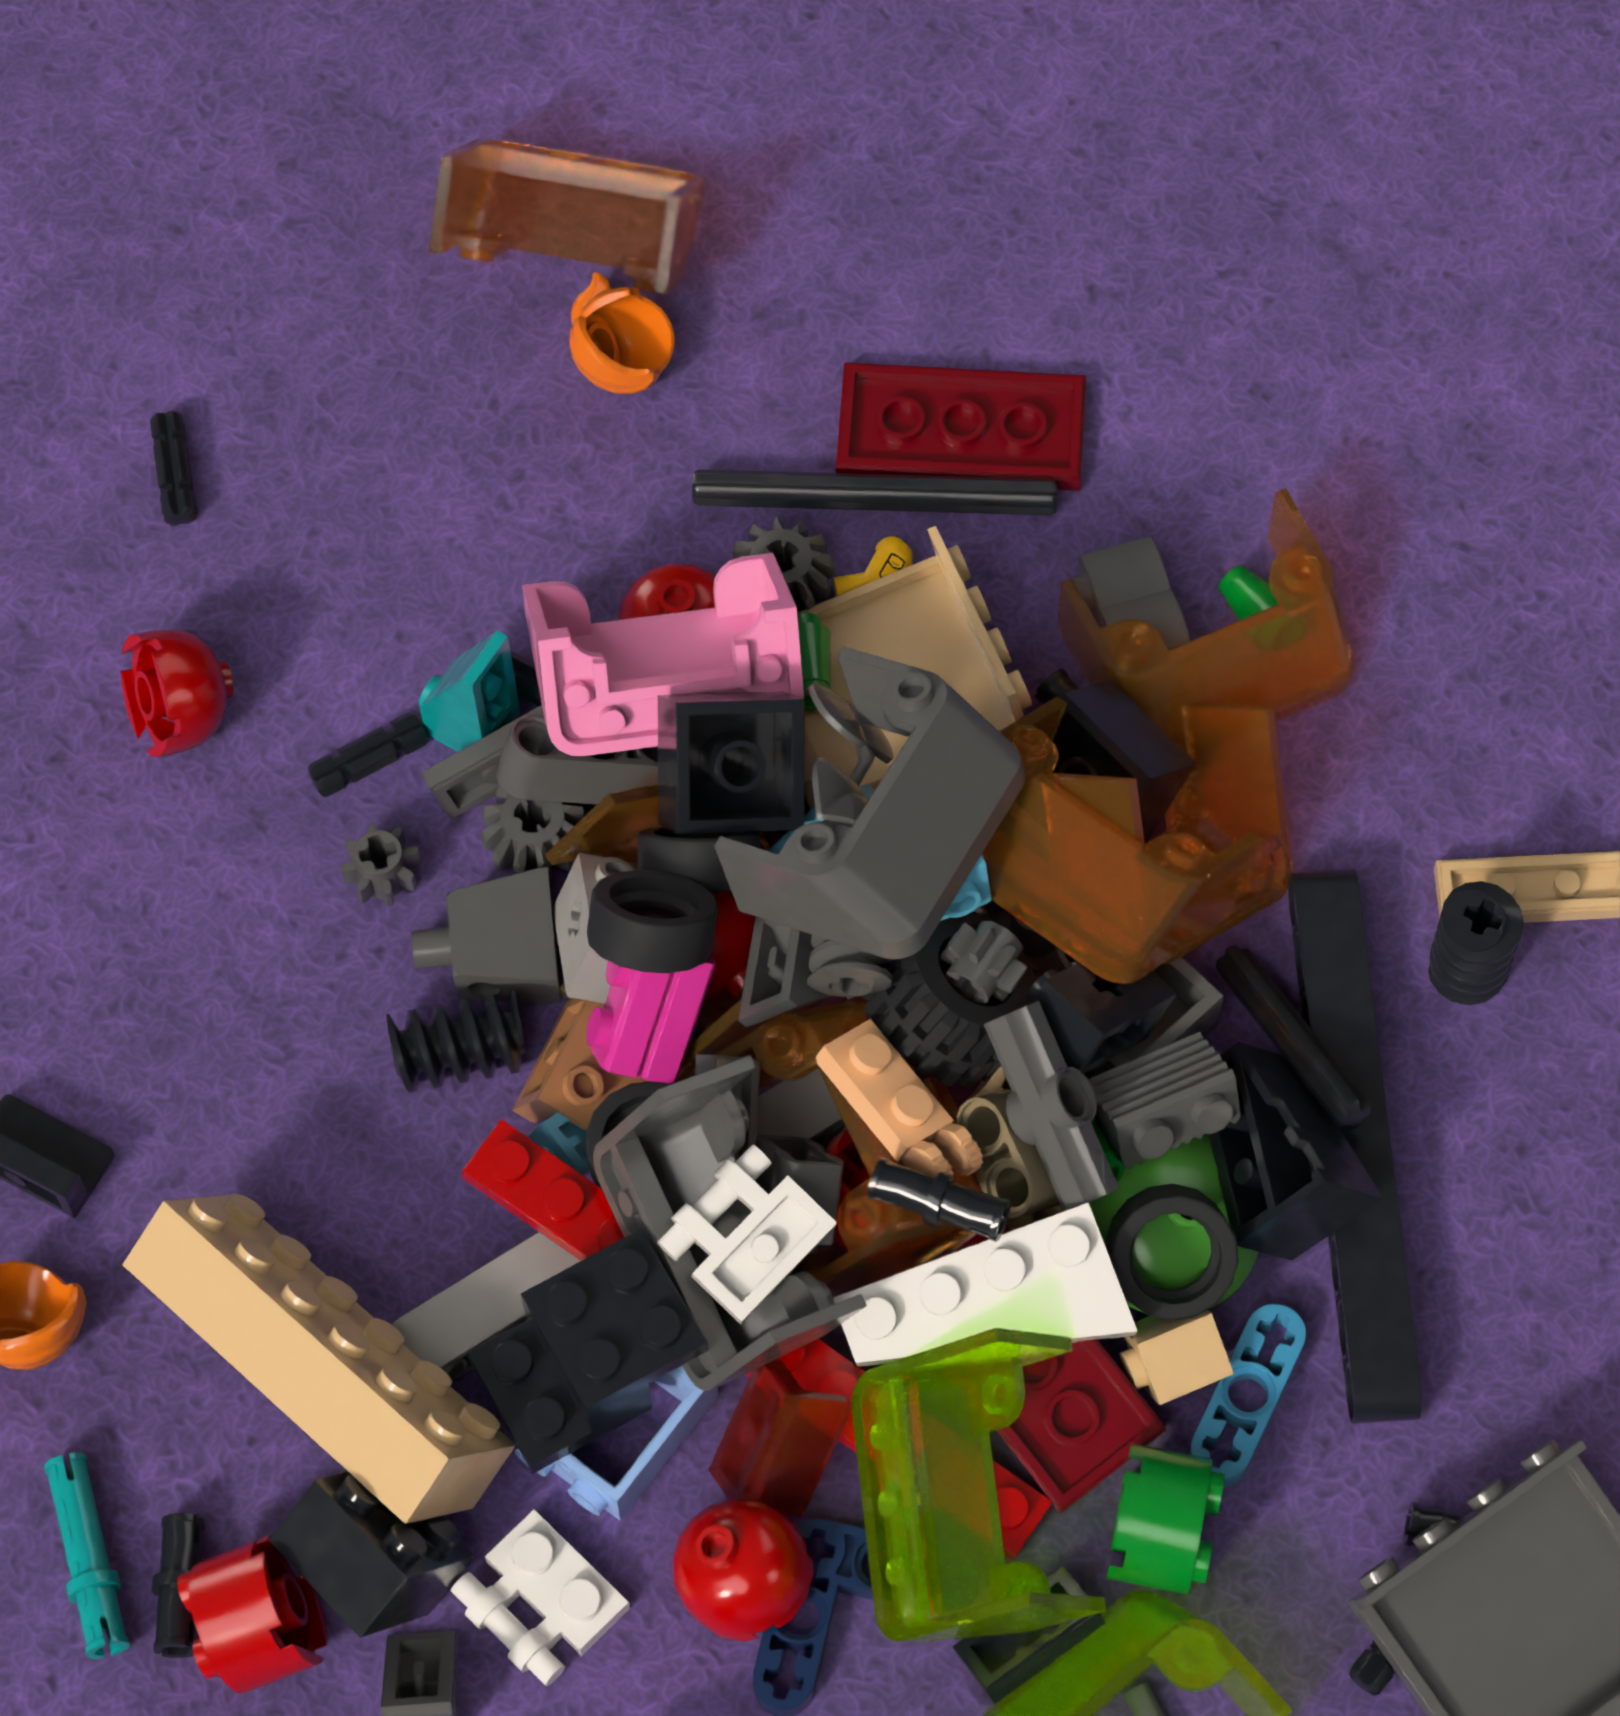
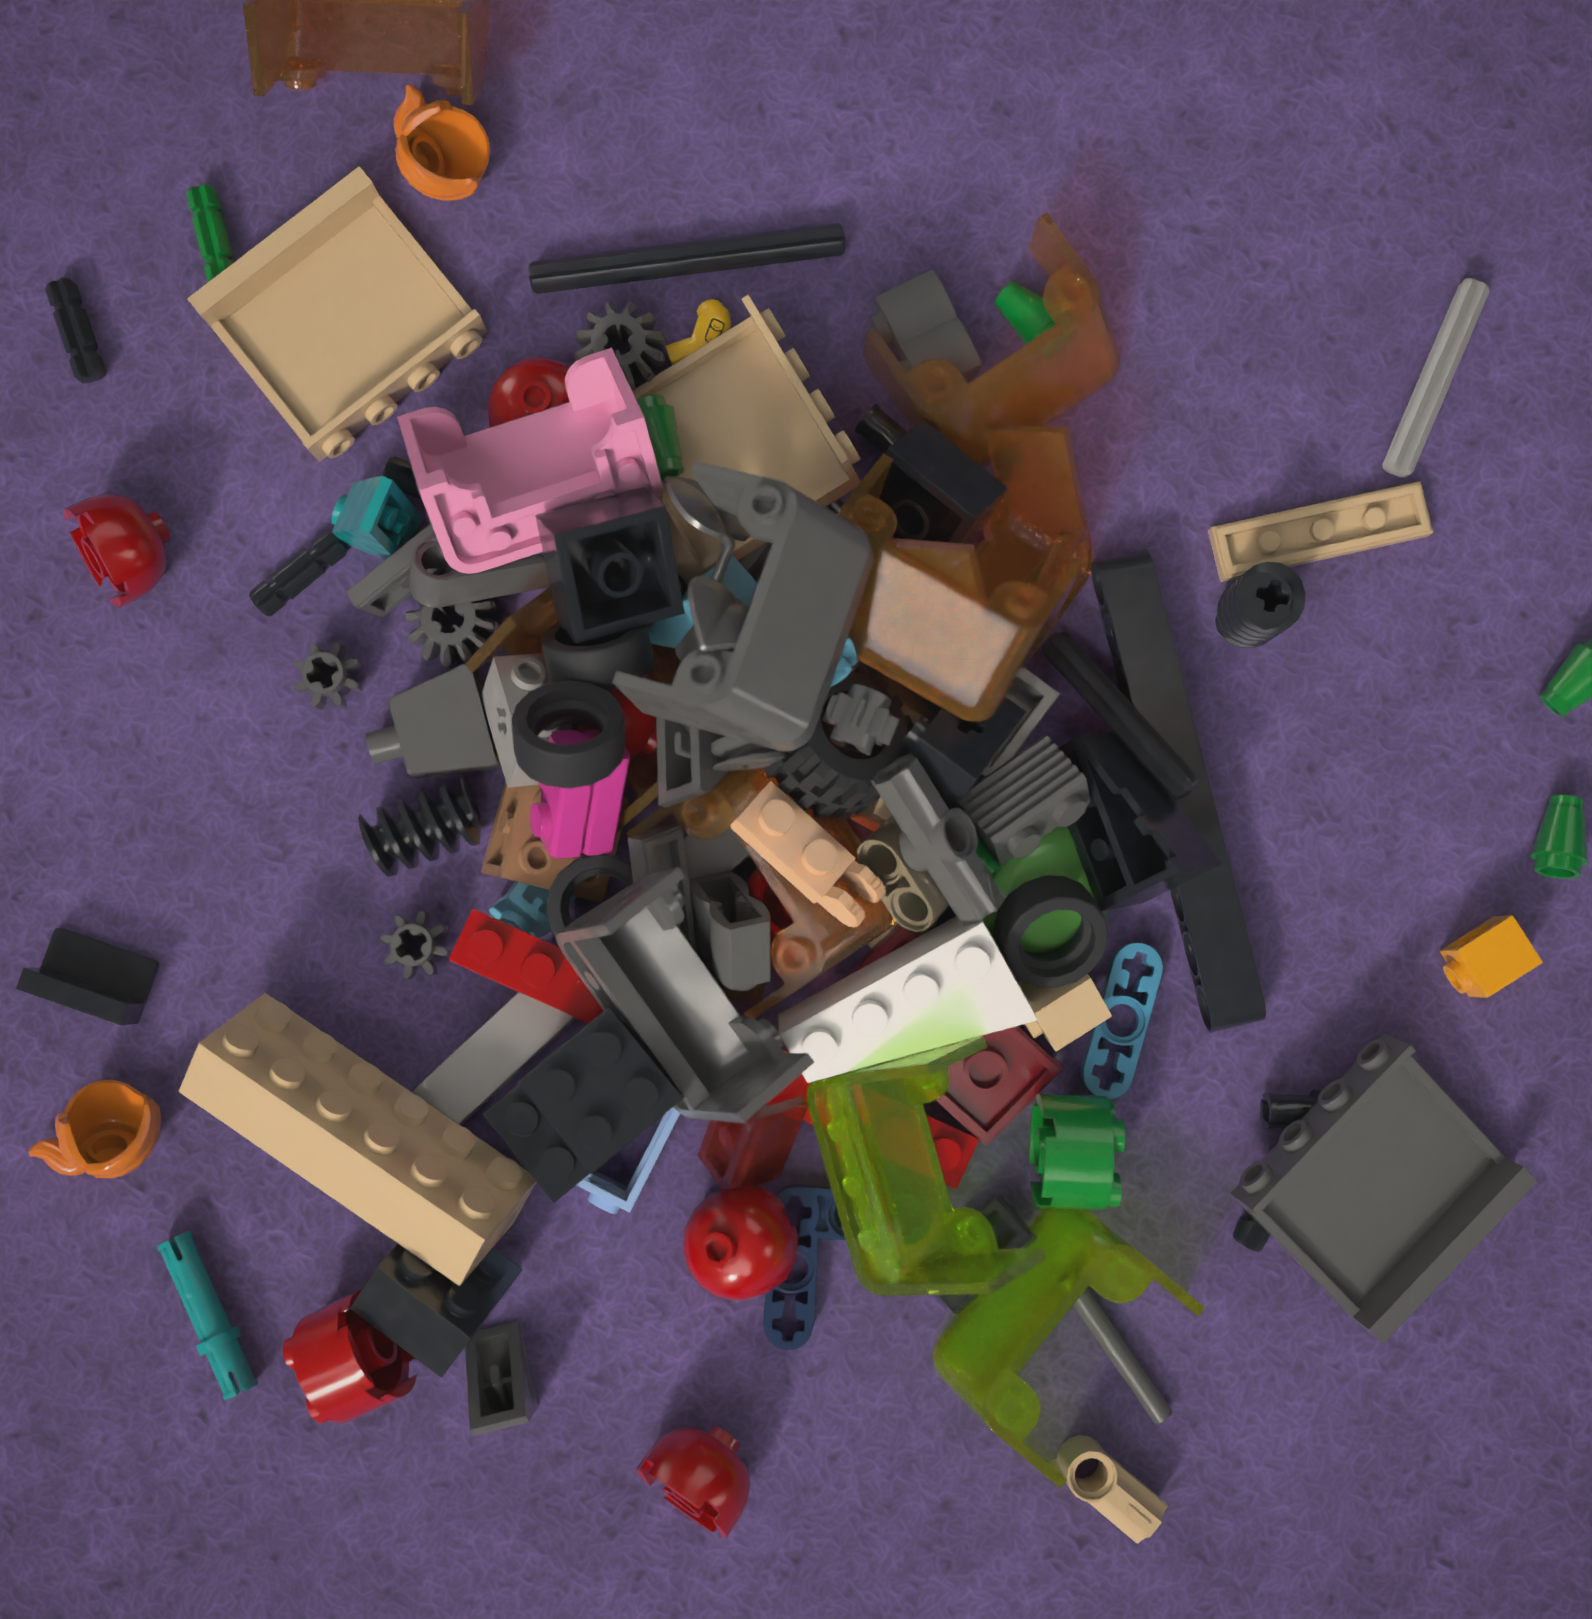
camera: 15 degrees left, 20 degrees up
(179, 1553) = (285, 1312): black pin -> none
(346, 396) = (210, 229): none -> green axle
(423, 1191) = (400, 941): none -> dark grey gear
(470, 494) = (339, 316): none -> tan panel
(555, 1583) = (590, 1270): white plate -> none
(762, 1248) = (715, 1009): white plate -> none
(939, 1199) = (857, 942): black pin -> none
(961, 423) = (750, 181): dark red tile -> none

